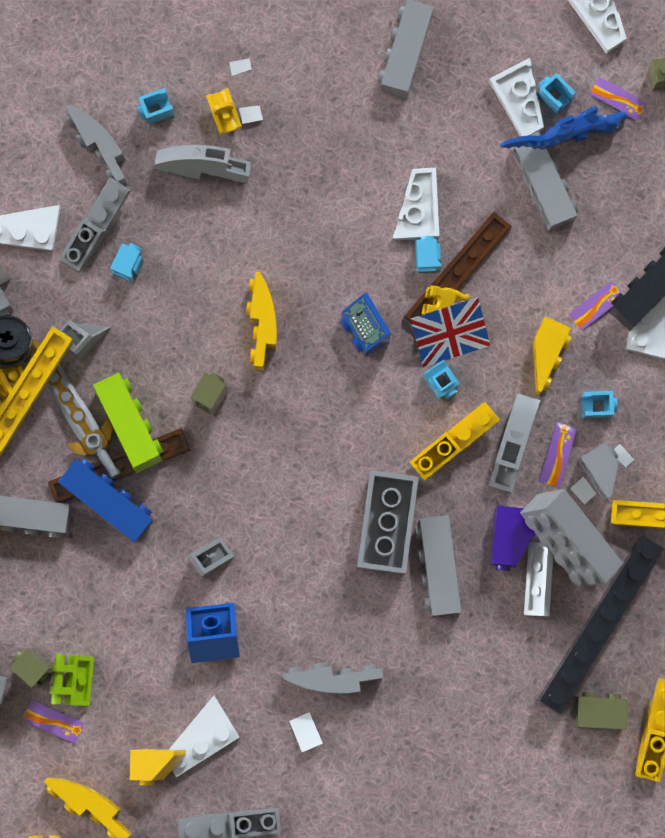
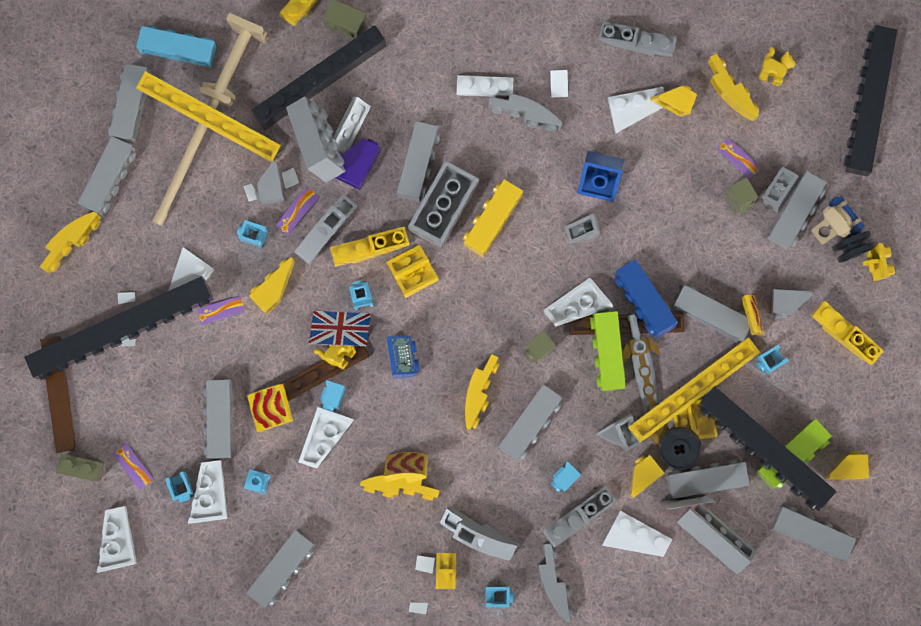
camera: 155 degrees left, 0 degrees up
(38, 298) = (644, 474): none -> yellow slope
(78, 680) = (710, 177): lime plate -> none
(184, 466) = (578, 303): none -> white wing
(189, 307) = (530, 422): none -> light grey brick
(311, 204) = (406, 465): none -> slope
(321, 183) = (393, 488): none -> yellow slope
(322, 531) = (493, 217): none -> yellow brick
(393, 434) = (412, 271): none -> yellow slope
(395, 694) = (484, 86): none -> white plate
(472, 129) = (257, 481): none -> medium azure window
(492, 213) = (270, 408): none -> slope
(569, 129) = (184, 450): blue animal -> none

